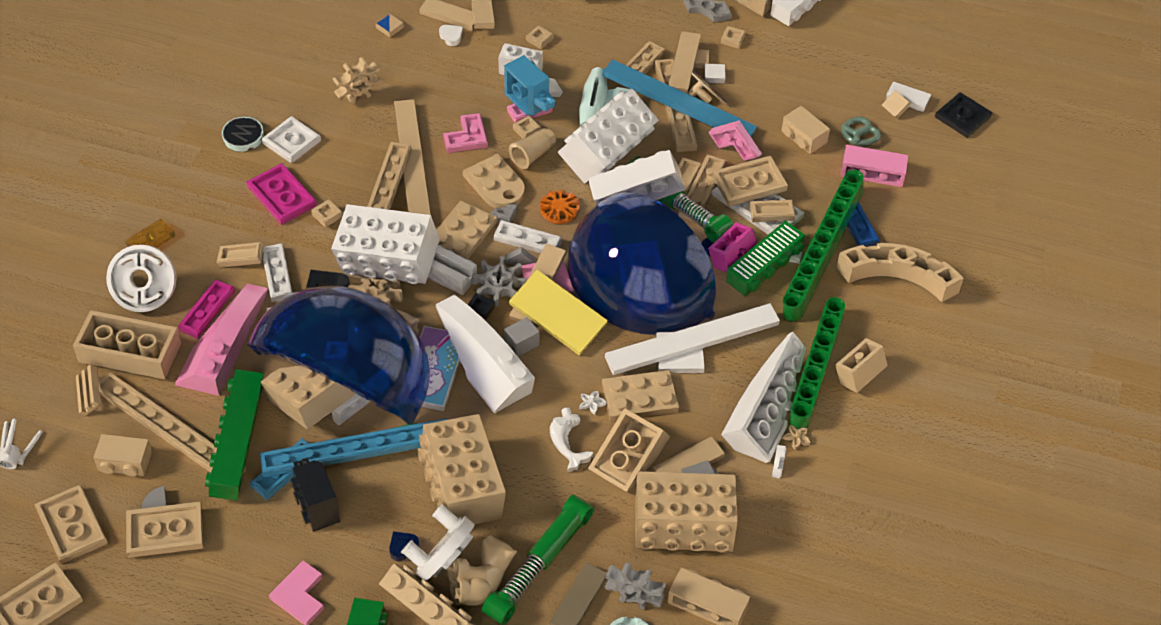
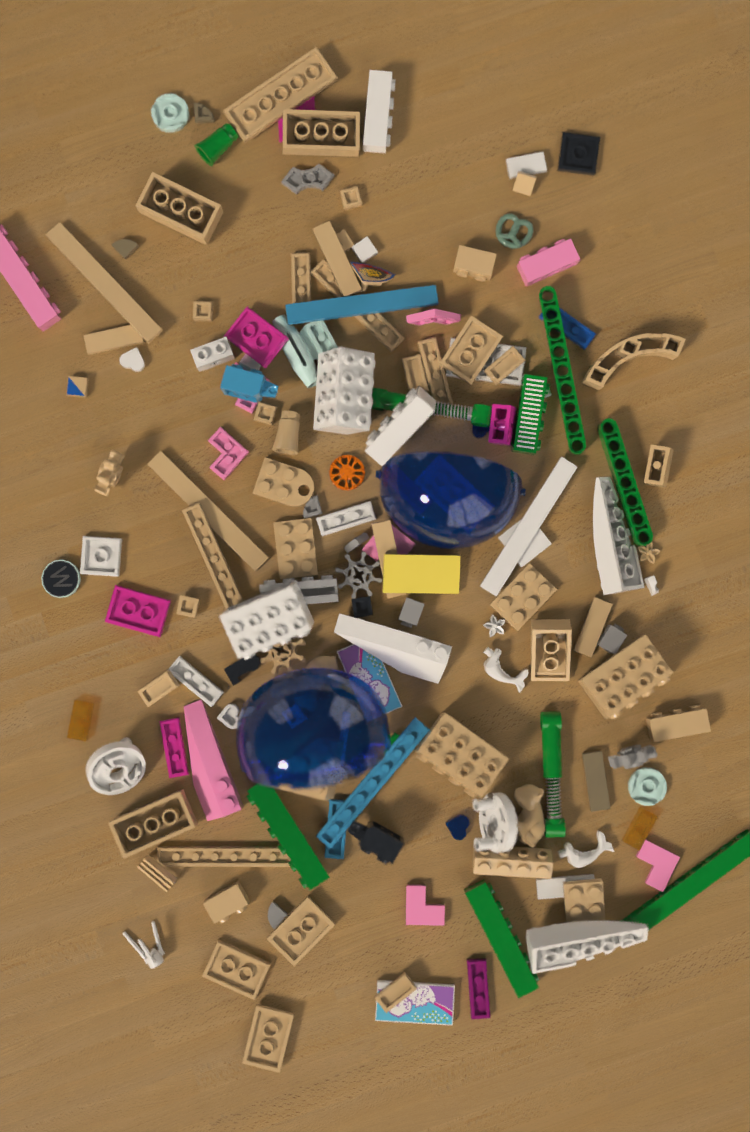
camera: 35 degrees left, 35 degrees up
(568, 70) = (256, 337): none -> dark pink tile

